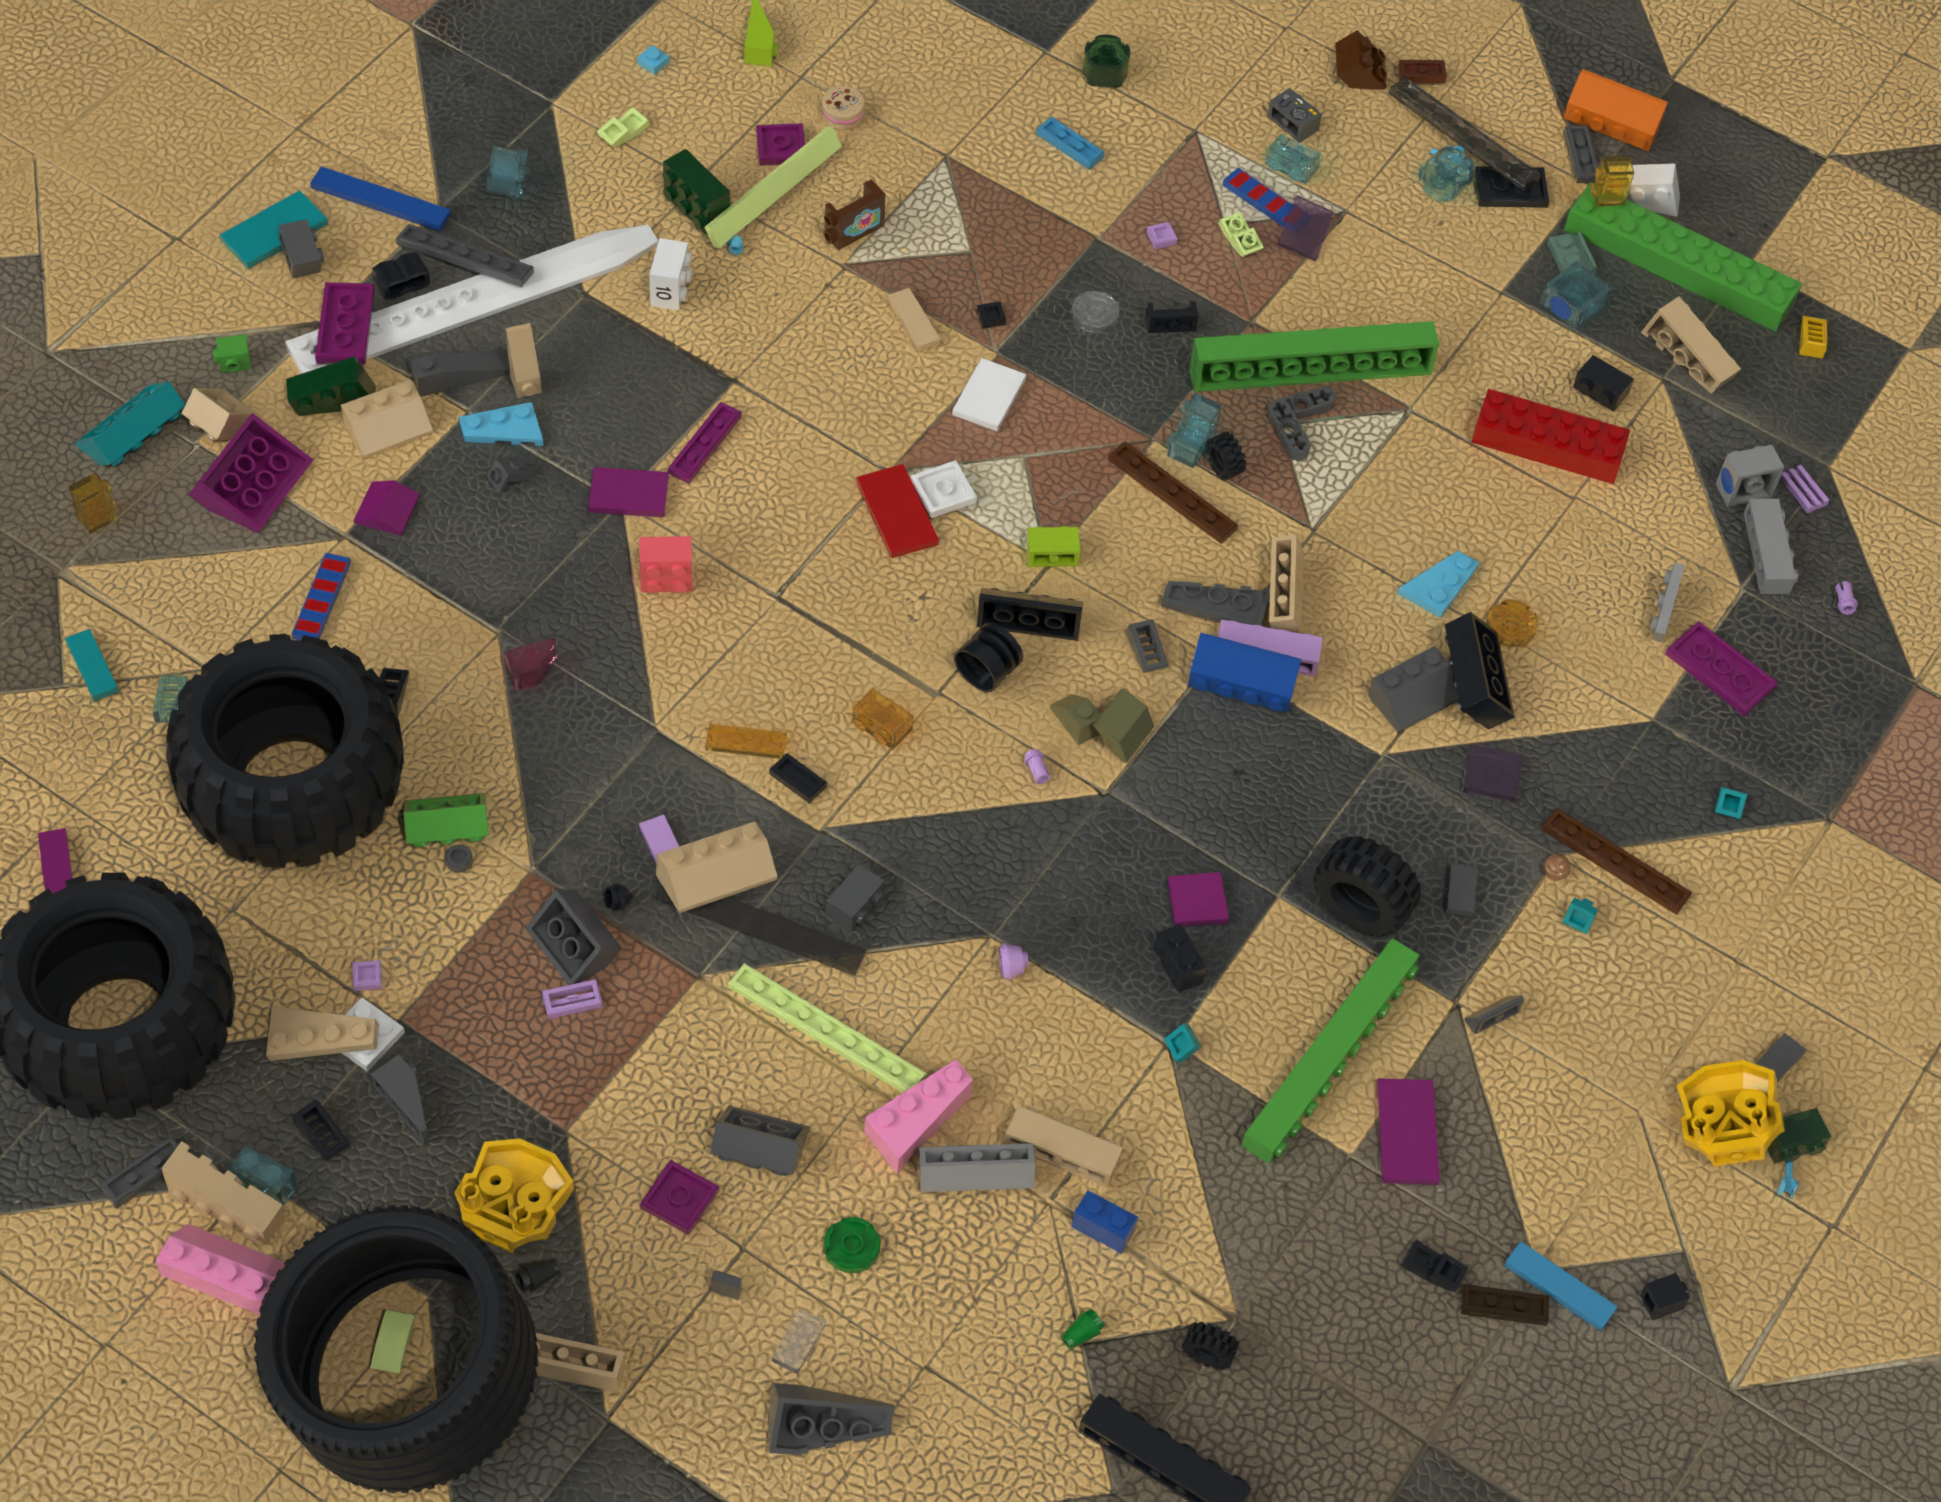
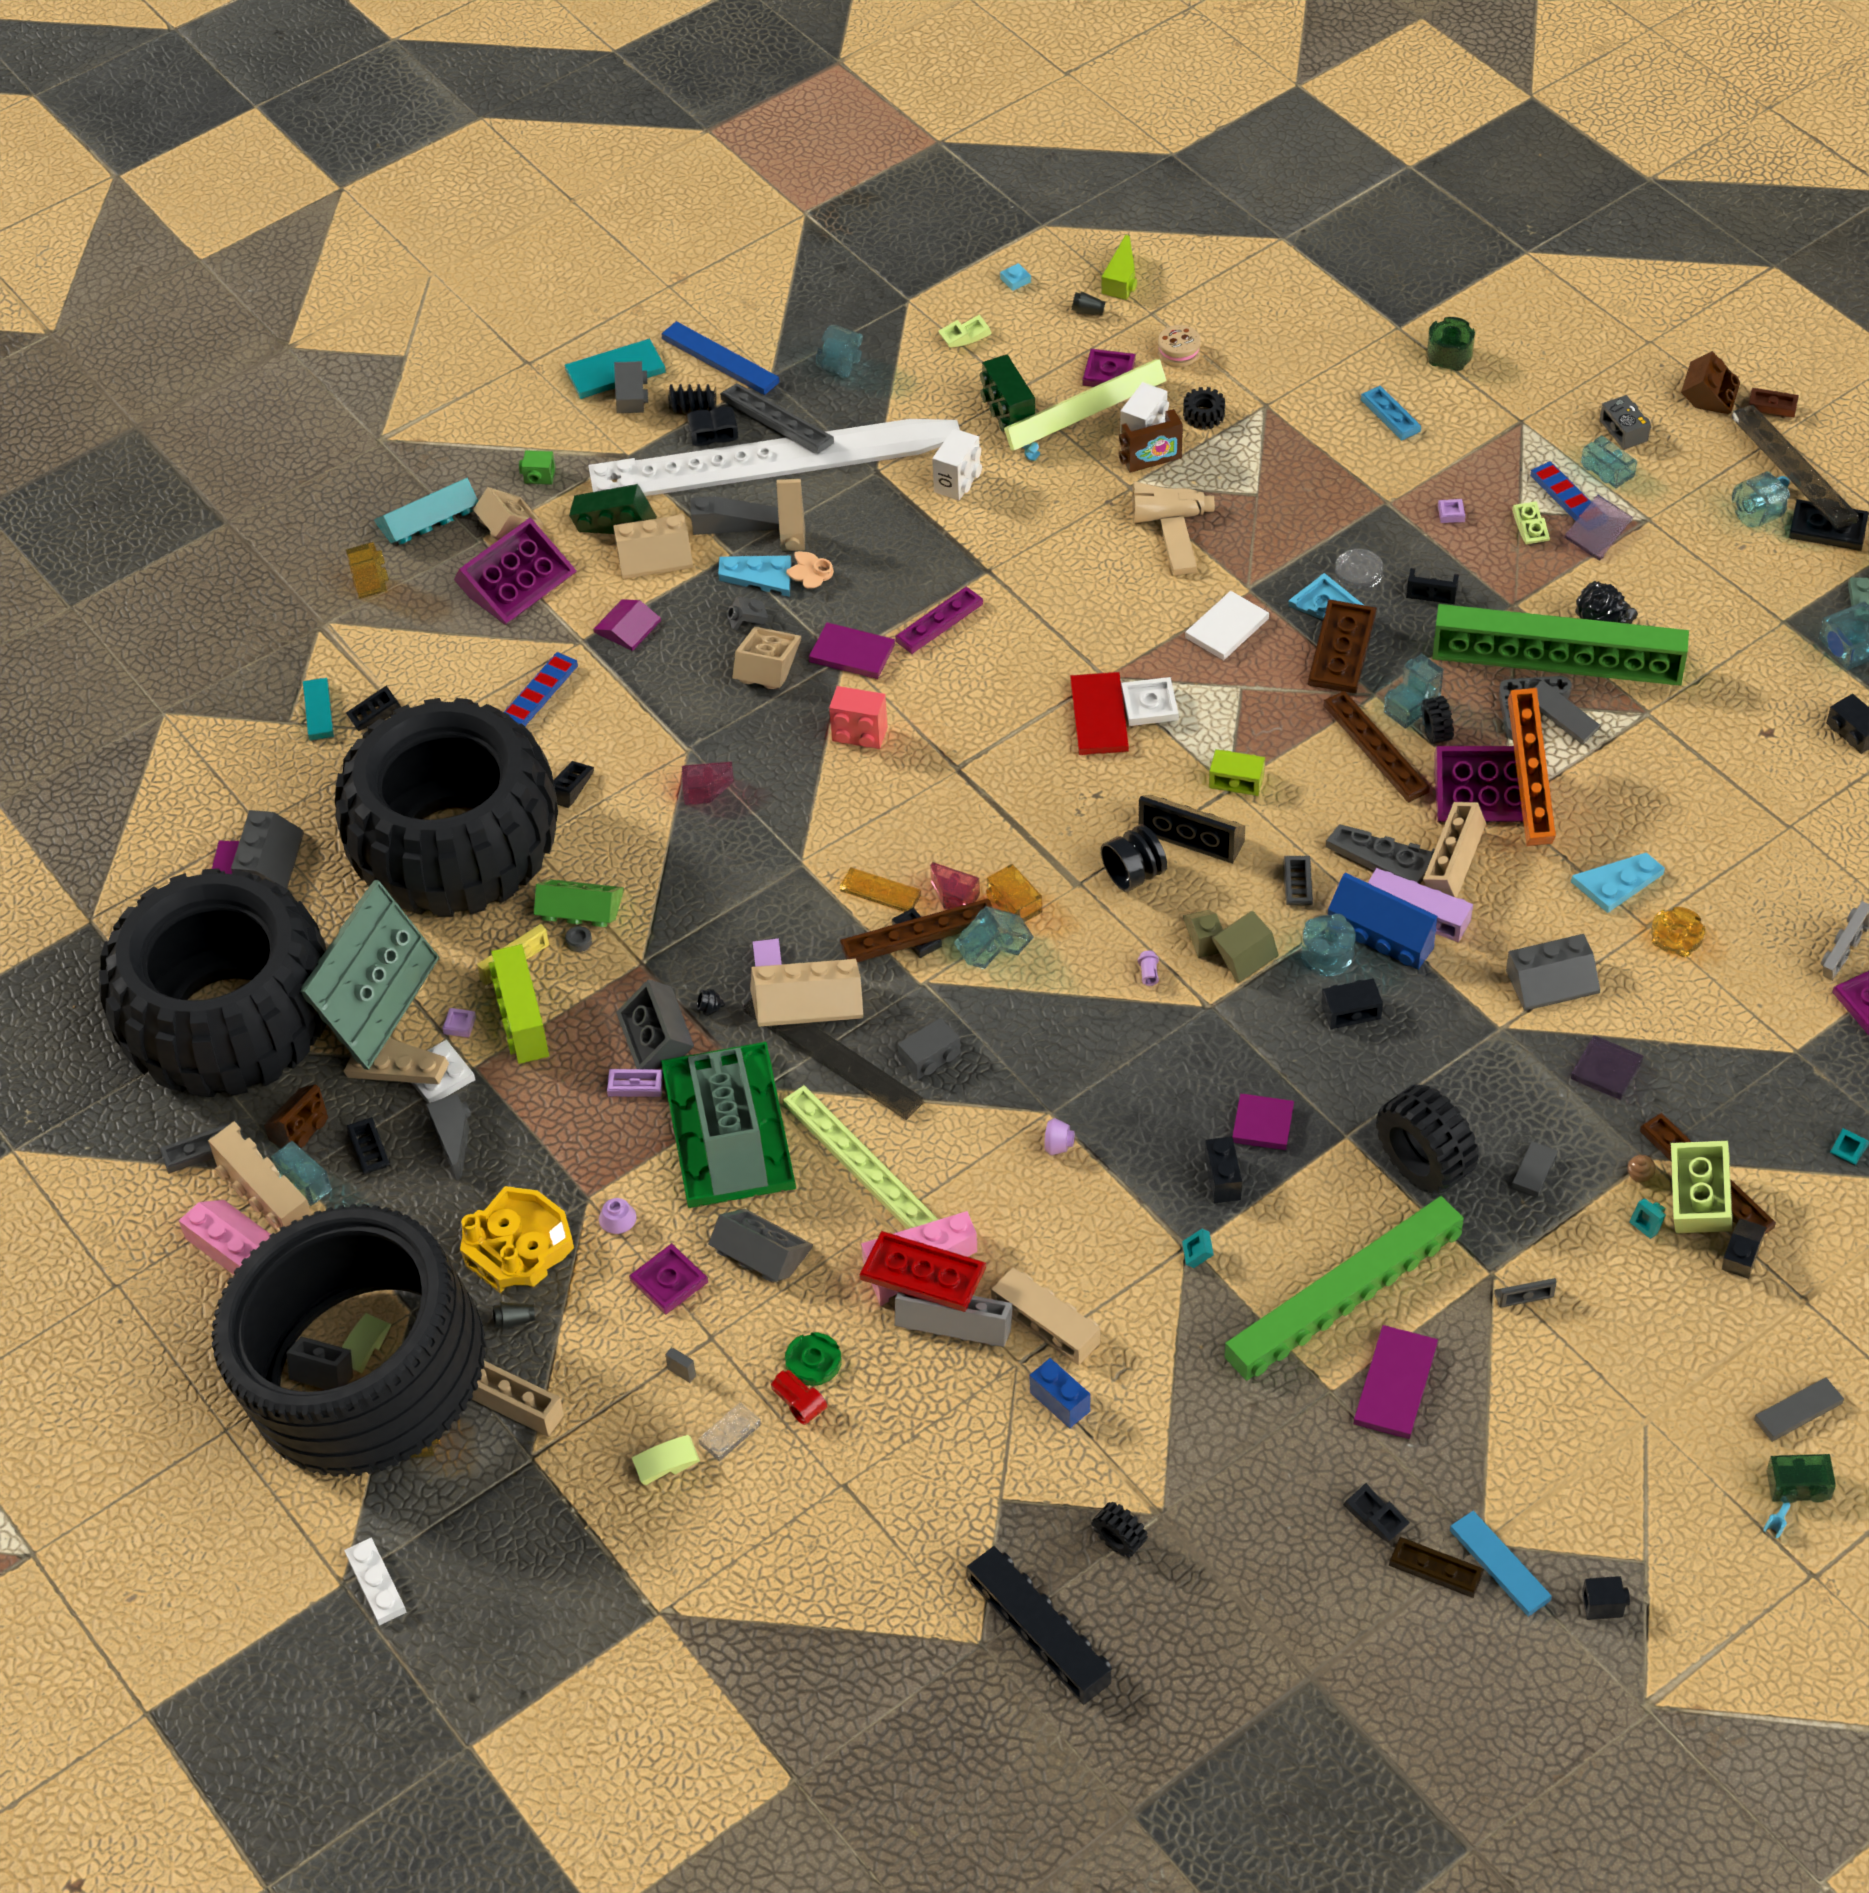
camera: 25 degrees right, 5 degrees down
(96, 834) = (268, 847): none -> dark grey slope
(158, 660) = (377, 699): none -> black slope
(238, 1119) = (298, 1118): none -> reddish brown slope
(269, 950) = (370, 974): none -> sand green piece
(345, 322) = (646, 456): magenta tile -> none
(360, 1377) = (319, 1364): none -> dark grey brick
(369, 249) = (692, 399): none -> black piece
(399, 891) = (532, 942): none -> light yellow tile
(428, 943) = (518, 1004): none -> lime brick
(545, 516) = (765, 657): none -> tan slope
(557, 413) = (810, 569): none -> light nougat plate
(605, 1145) = (617, 1216): none -> lavender cone
(682, 1022) = (728, 1125): none -> piece
(736, 78) = (1087, 304): none -> pearl dark grey cone
(746, 1386) = (665, 1458): none -> yellowish green slope
(802, 777) = (911, 932): none -> reddish brown tile
(815, 1418) = (726, 1506): dark grey wedge -> none
(820, 724) = (954, 886): none -> clear pink slope
(839, 184) = (1145, 407): none -> white brick
(859, 1292) = (802, 1401): none -> red piece
(878, 766) = (991, 933): none -> clear light blue brick
(880, 278) = (1158, 502): none -> tan piece
(894, 160) = (1204, 417): none -> black tyre
(938, 1132) = (923, 1271): none -> red tile
(991, 315) = (1255, 554): black tile -> none
(1082, 1329) = (1003, 1486): green cone -> none
(1083, 353) = (1315, 596): none -> medium azure wing
(1108, 396) = (1342, 646): none -> reddish brown tile
(1200, 706) = (1328, 944): none -> clear light blue brick
(1241, 761) = (1351, 1003): none -> black brick
(1292, 504) = (1478, 776): none -> magenta slope
(1335, 424) = (1565, 713): none -> dark grey tile
(1335, 488) = (1531, 767): none -> orange brick
(1343, 309) = (1604, 603): none -> black hair
(1479, 671) = (1622, 966): black brick -> none
(1550, 436) = (1782, 763): red brick -> none
(1622, 874) = (1701, 1187): none -> yellowish green brick
(1675, 924) = (1743, 1248): none -> black slope
(1733, 1129) = (1736, 1452): yellow brick -> none

